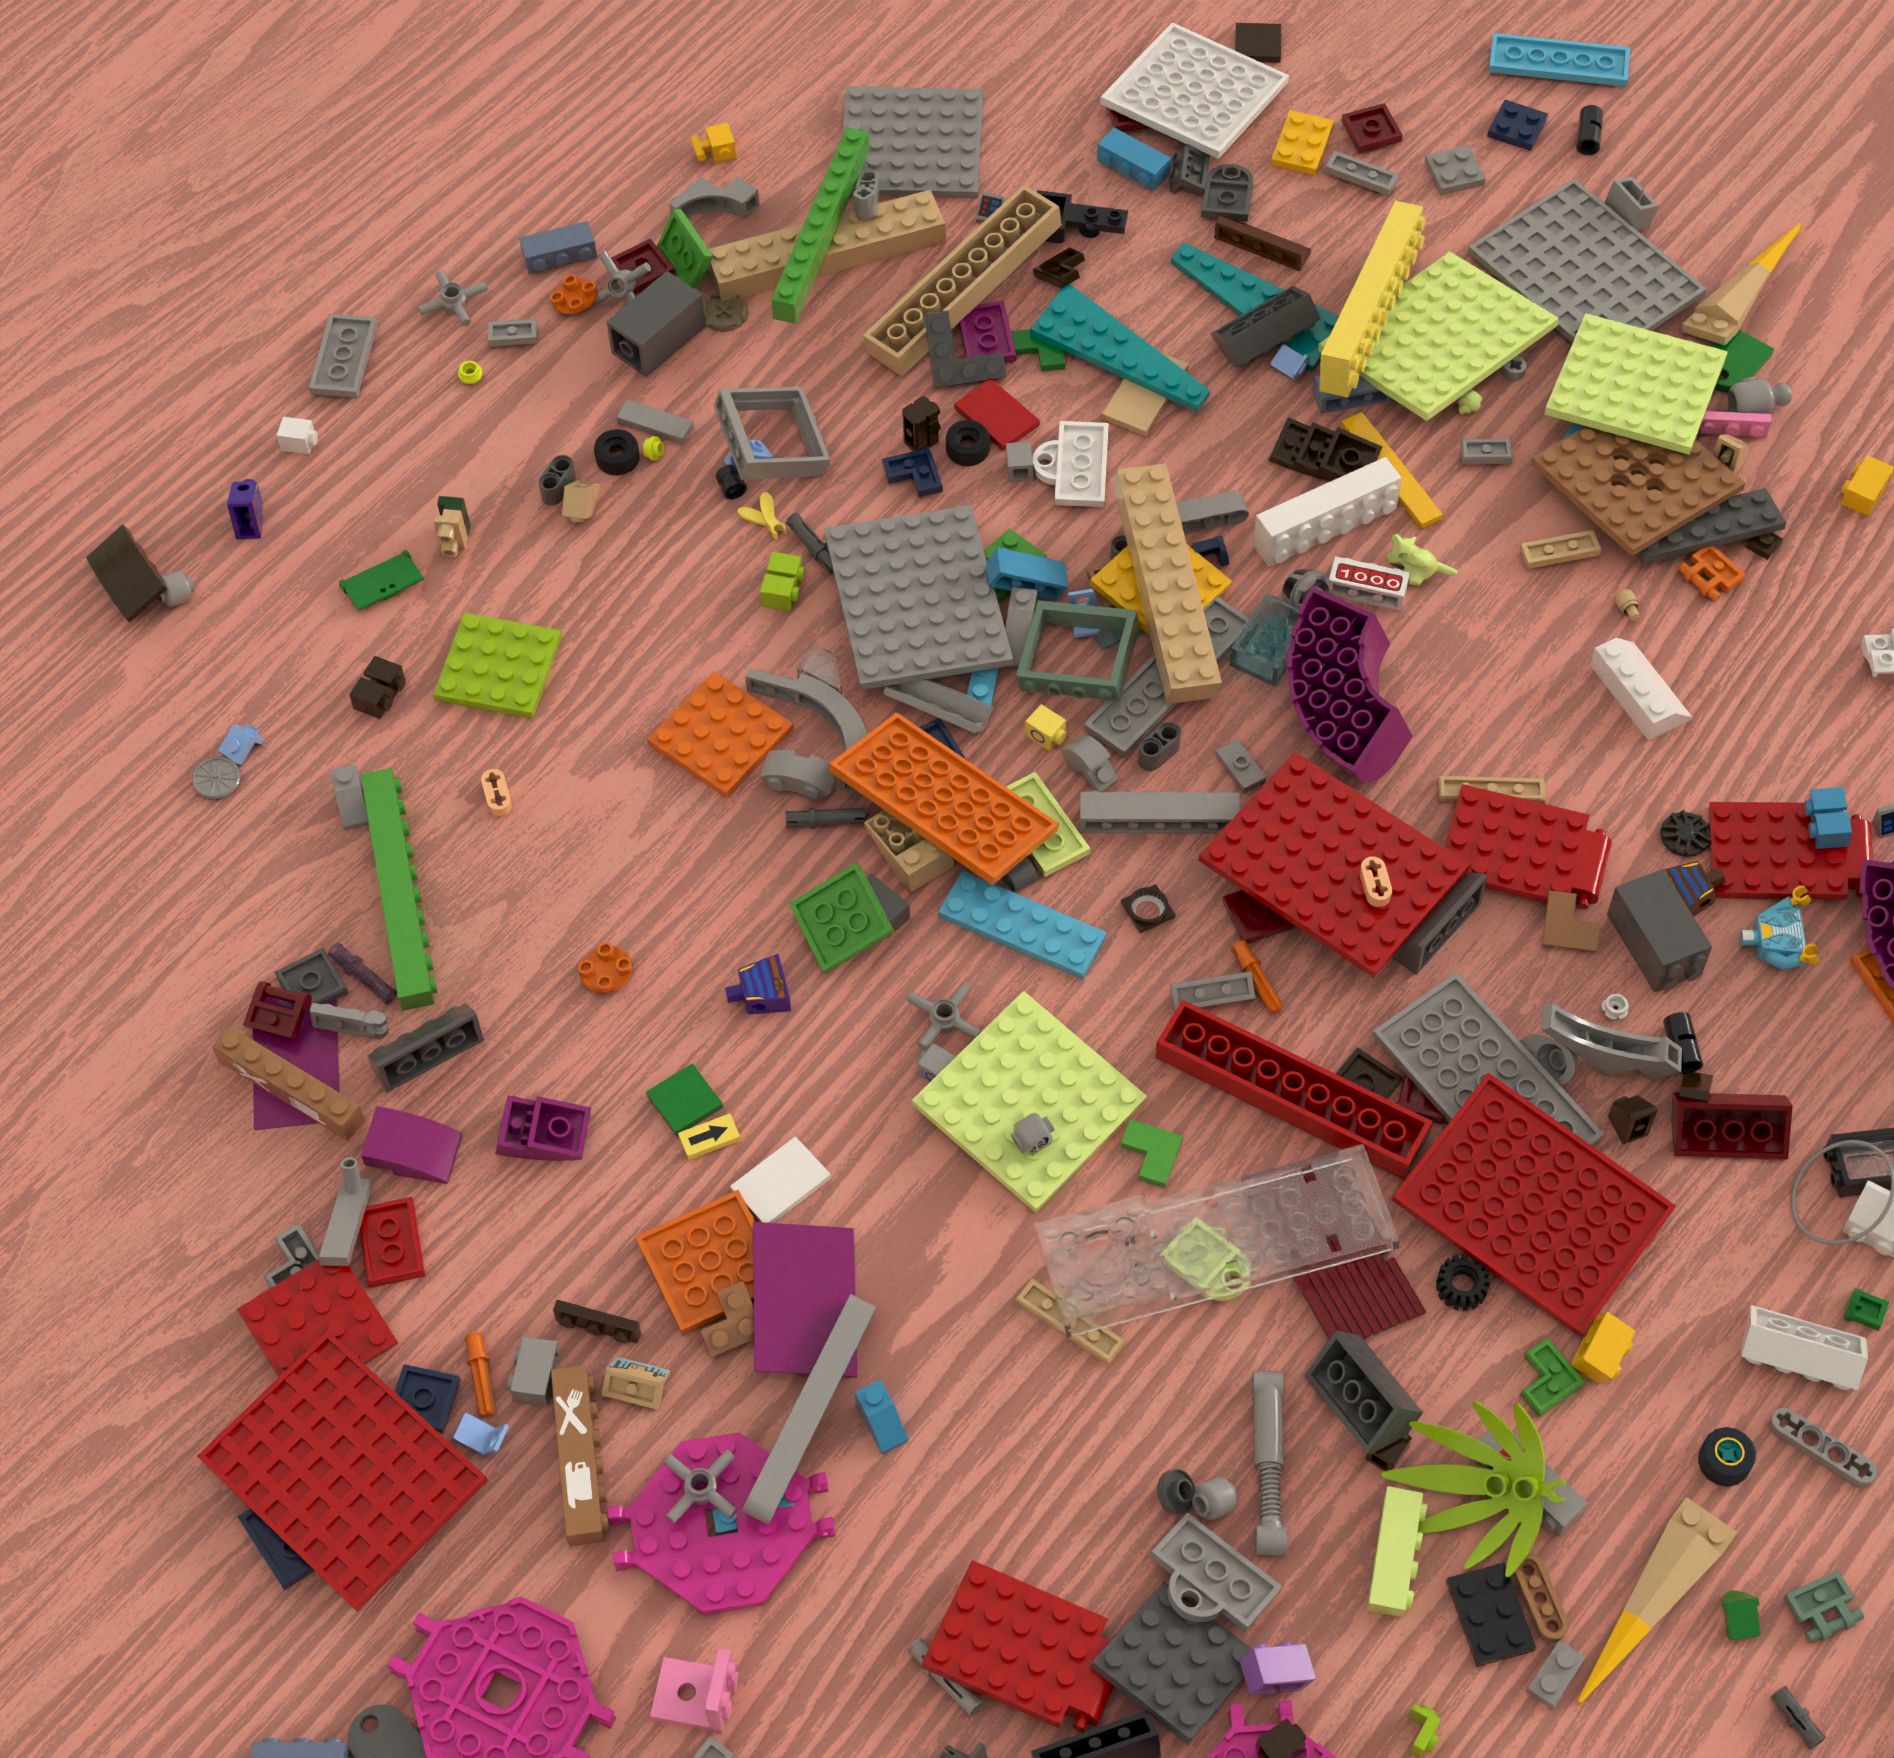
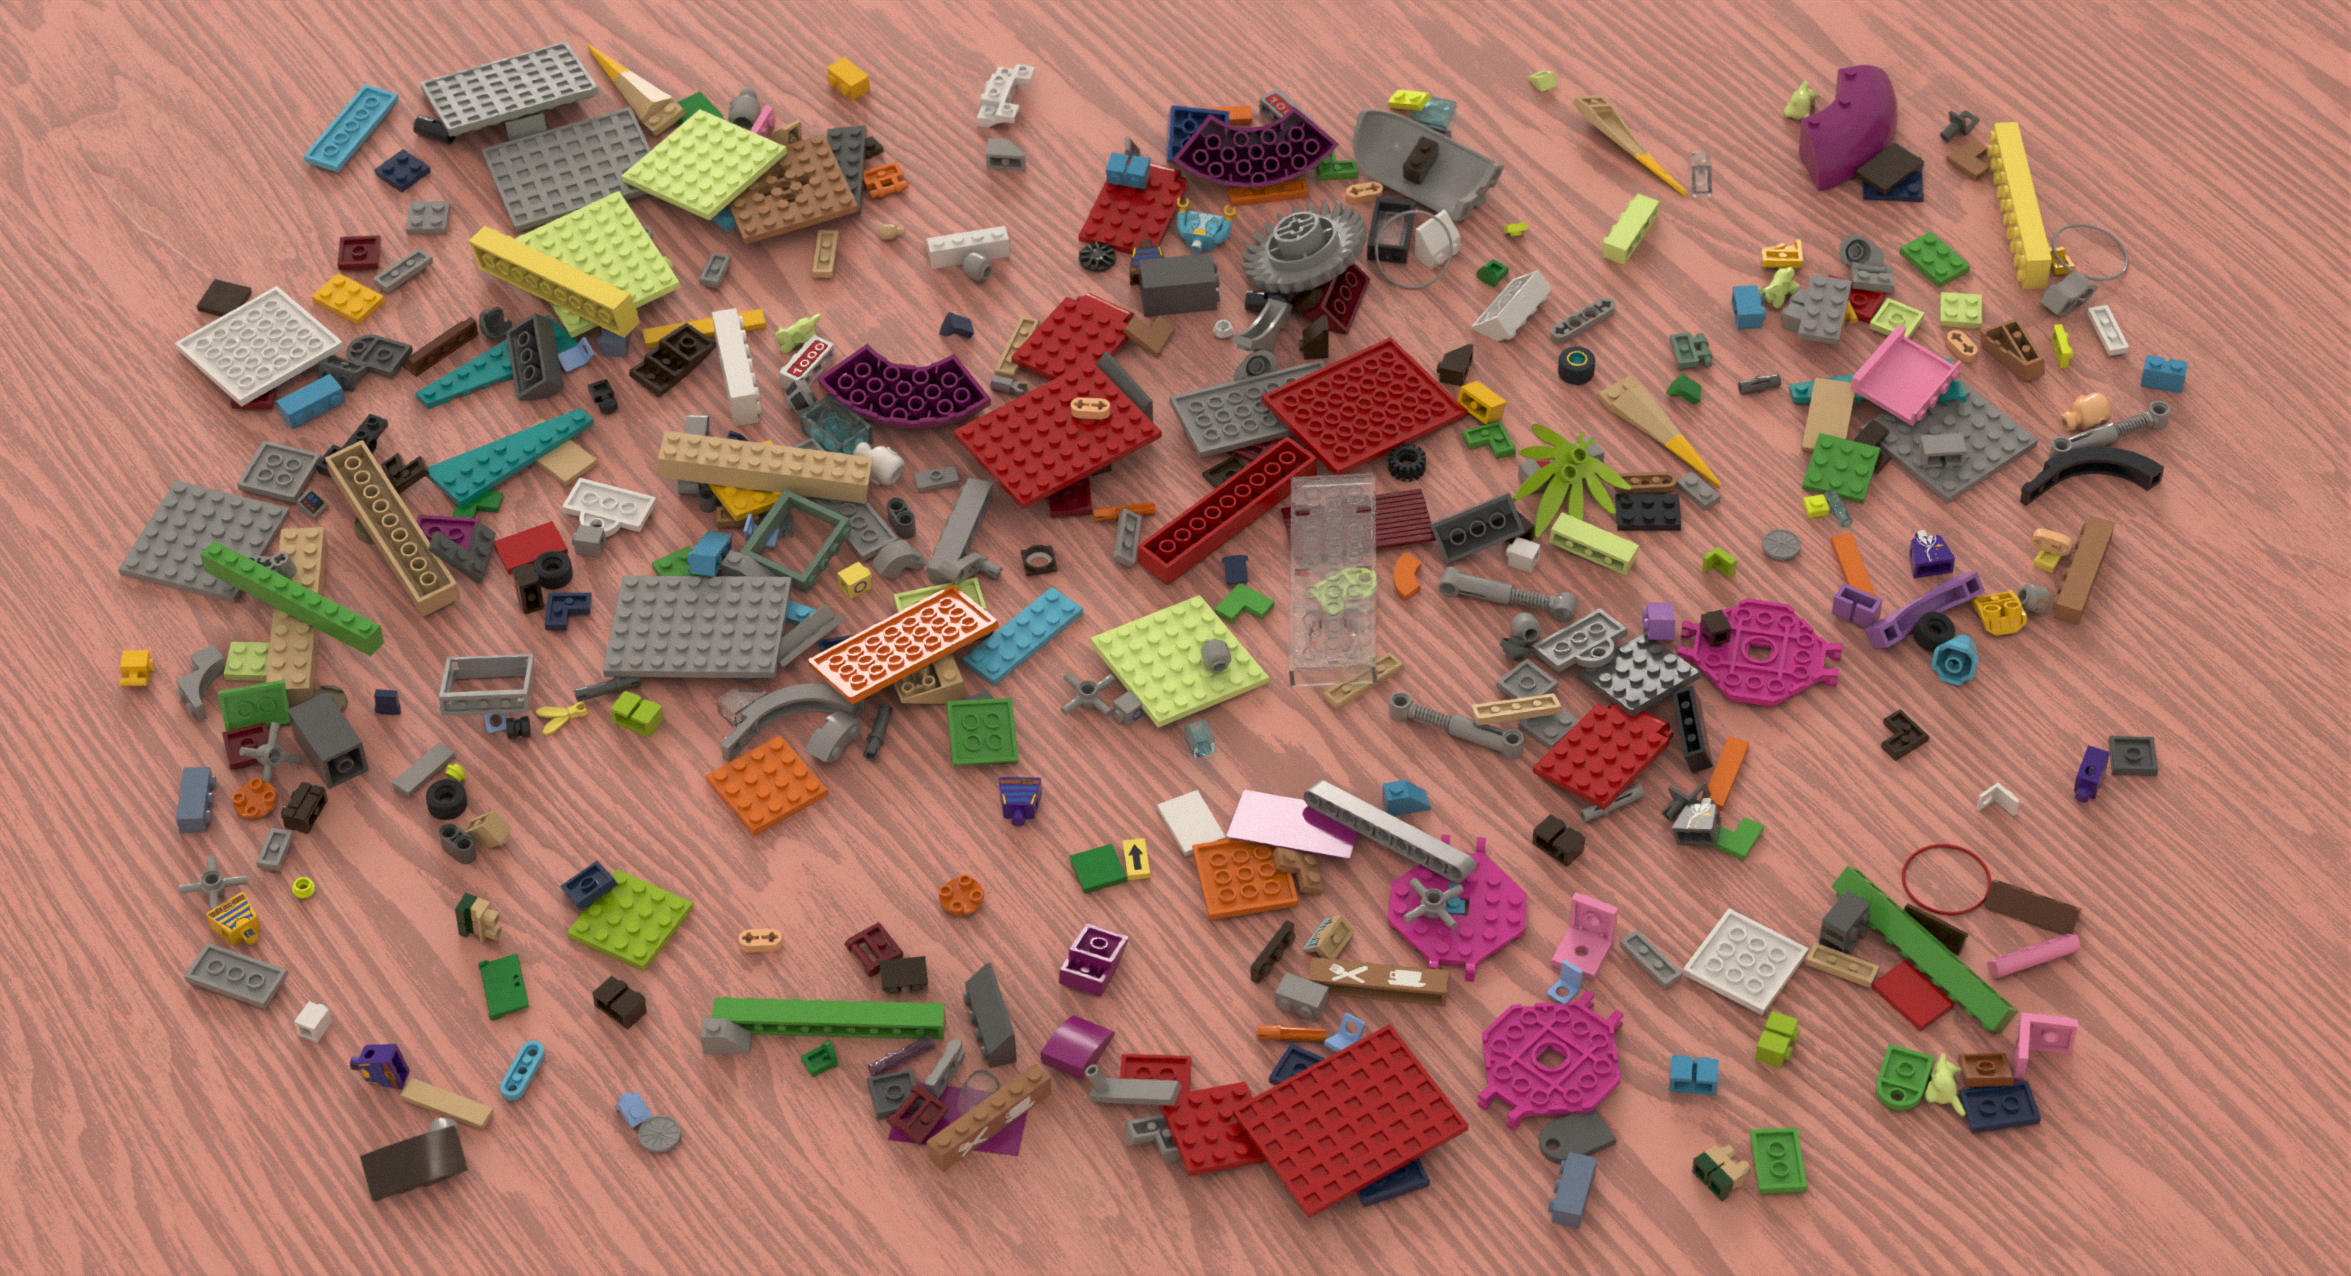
camera: 75 degrees left, 10 degrees down
(220, 581) = (447, 1103): none -> tan tile
(262, 627) = (522, 1063): none -> medium azure plate
(319, 1060) = (971, 1095): none -> clear cap
(344, 897) = (820, 1059): none -> green tile
(411, 332) = (235, 920): none -> yellow torso
(465, 936) = (903, 973): none -> dark brown piece
(512, 909) = (880, 945): none -> dark red plate
(523, 609) = (589, 885): none -> dark blue plate
(571, 337) = (304, 807): none -> dark brown brick
(635, 1689) = (1569, 979): none -> light blue bracket
(735, 363) = (387, 702): none -> dark blue tile
(757, 223) = (247, 661): none -> yellowish green plate
(858, 1629) = (1558, 840): none -> dark brown piece
(910, 1155) = (1199, 738): none -> clear light blue brick
(1019, 1452) = (1507, 742): none -> light grey piece
(1025, 162) = (279, 471): none -> light grey plate
(1053, 1513) = (1515, 709): none -> tan plate
(1063, 1566) = (1548, 729): none -> light grey plate
(1076, 820) = (967, 567): none -> light grey beam
(1120, 1523) = (1526, 681): none -> light grey plate
(1202, 1124) = (1235, 569): none -> dark blue tile
(1236, 699) = (886, 463): none -> white piece
(1248, 403) = (603, 395): none -> black plate
(1265, 1328) = (1404, 576): none -> orange tile
(1309, 274) = (493, 324): none -> dark grey hair
(1346, 1466) = (1523, 554): none -> white brick
(1421, 796) = (1008, 385): none -> light grey bar
(1496, 716) = (956, 325): none -> dark blue tile
(1602, 707) = (977, 266): none -> light grey head
(1664, 1302) = (1455, 365): none -> dark brown slope
(1677, 169) = (509, 88): none -> light grey plate
(1782, 1059) = (1305, 249): none -> light grey gear
(1812, 680) = (1004, 155): none -> light grey slope

